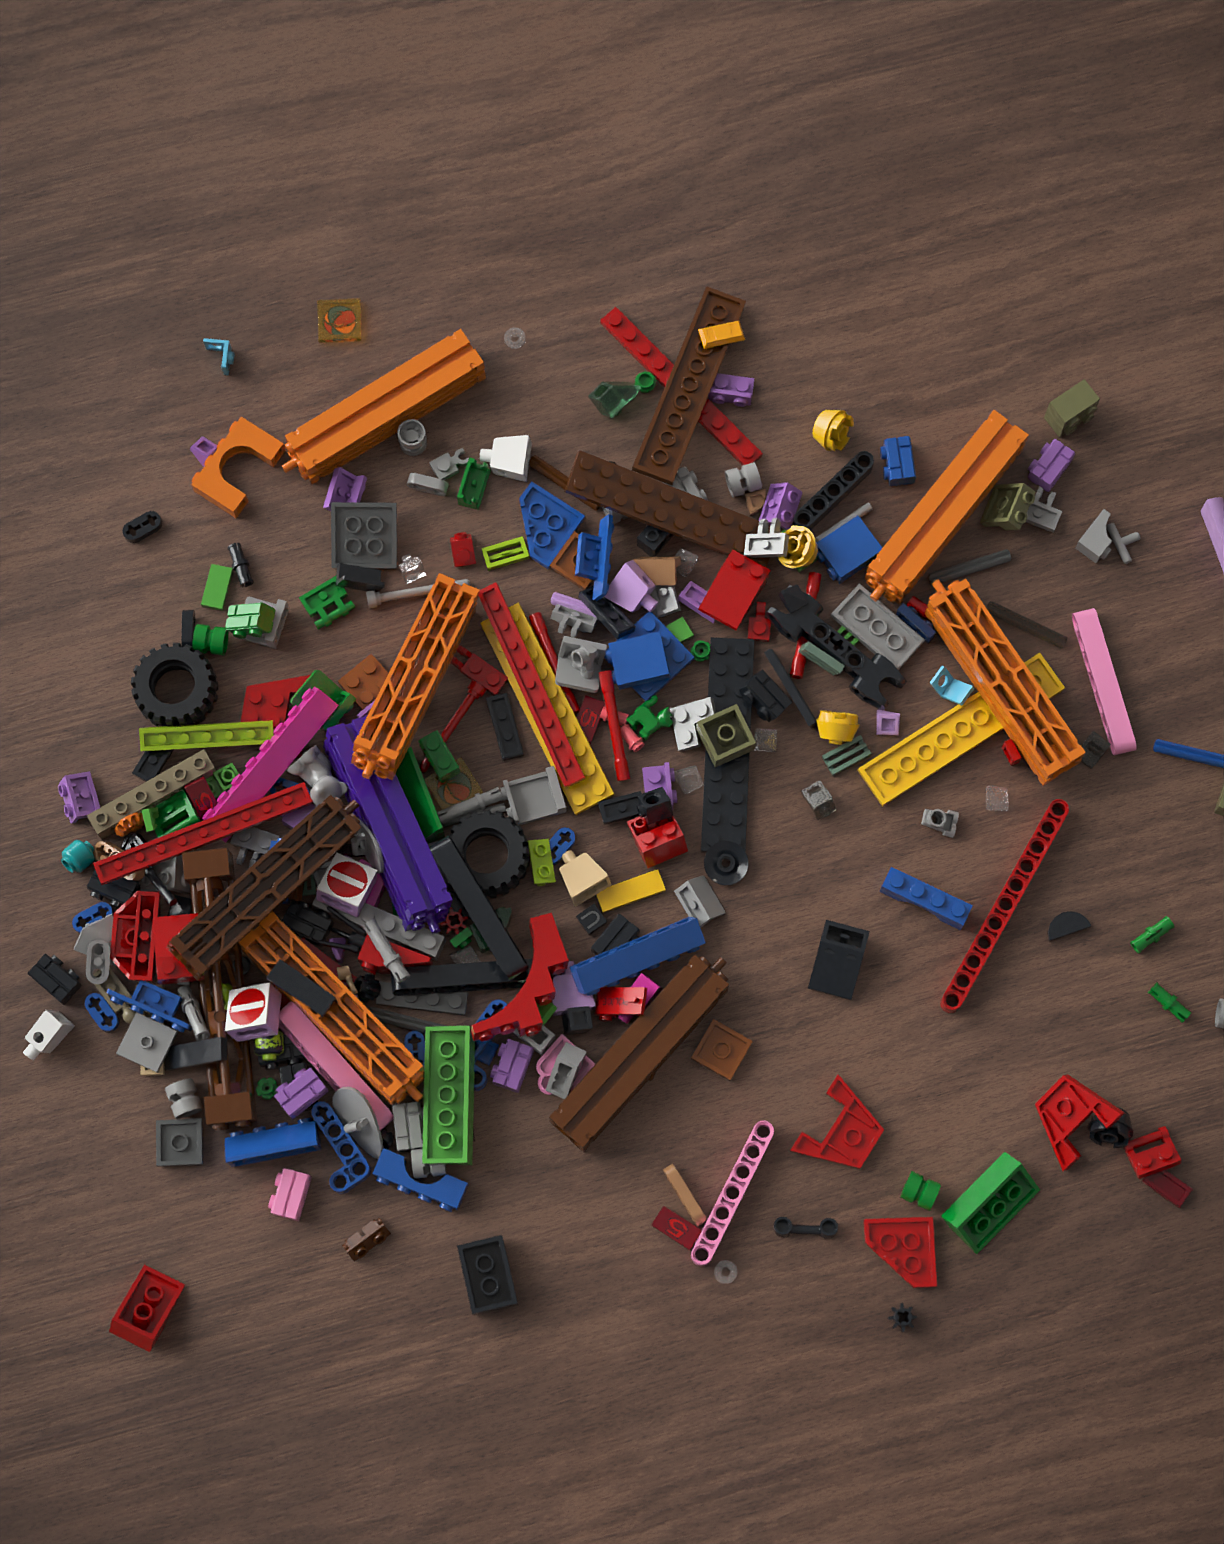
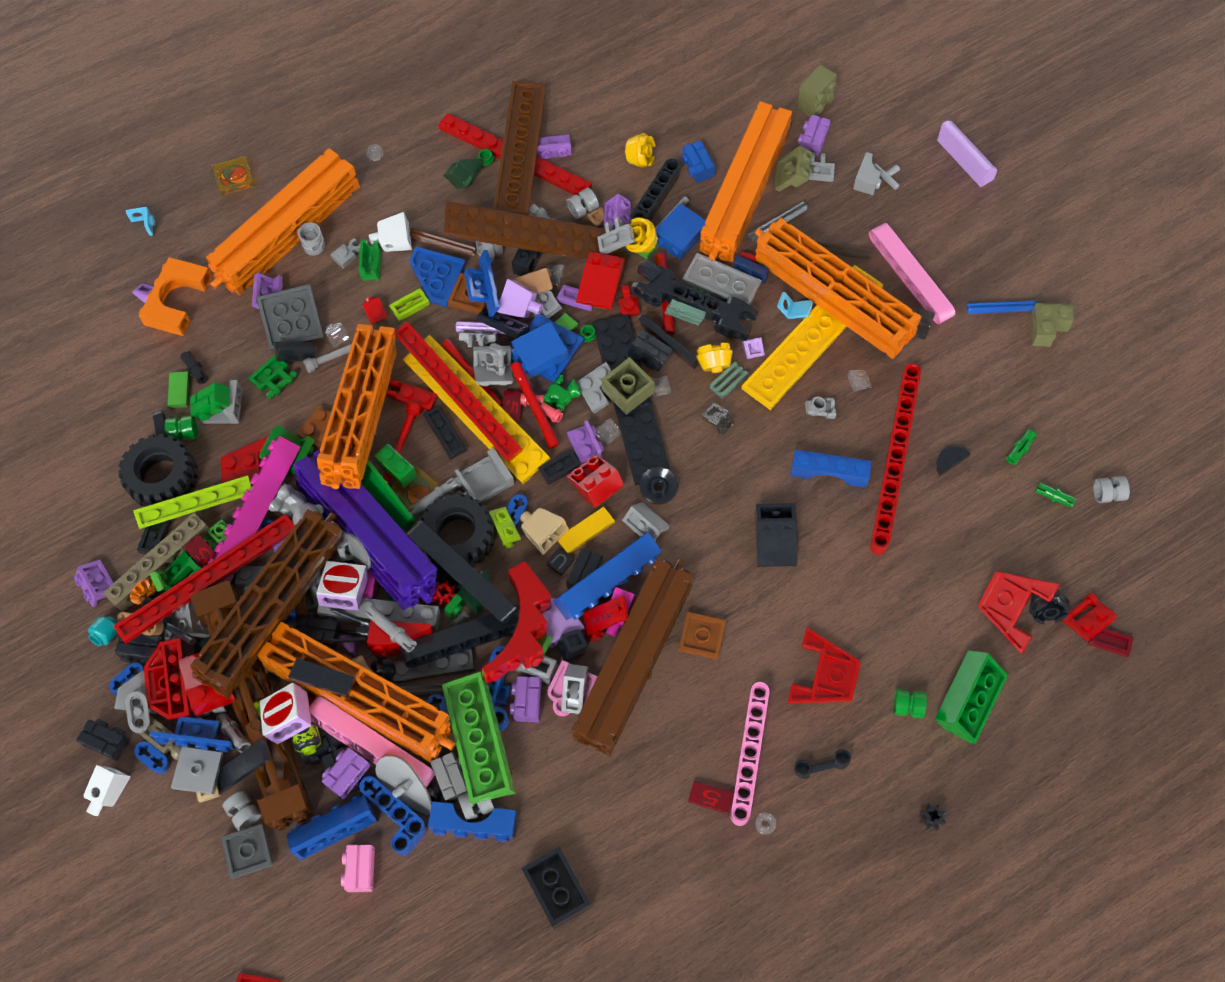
camera: 15 degrees left, 10 degrees down
(139, 525) = (106, 361): black beam -> none
(266, 1094) = (310, 781): green plate -> none
(358, 1246) = (432, 897): reddish brown hinge -> none
(427, 484) = (333, 270): light grey beam -> none
(654, 806) = (586, 454): black brick -> none
(684, 1195) = (709, 766): medium nougat beam -> none
(721, 334) = (534, 107): light orange tile -> none
(905, 1246) = (913, 756): red plate -> none
(1011, 752) = (858, 341): red tile -> none

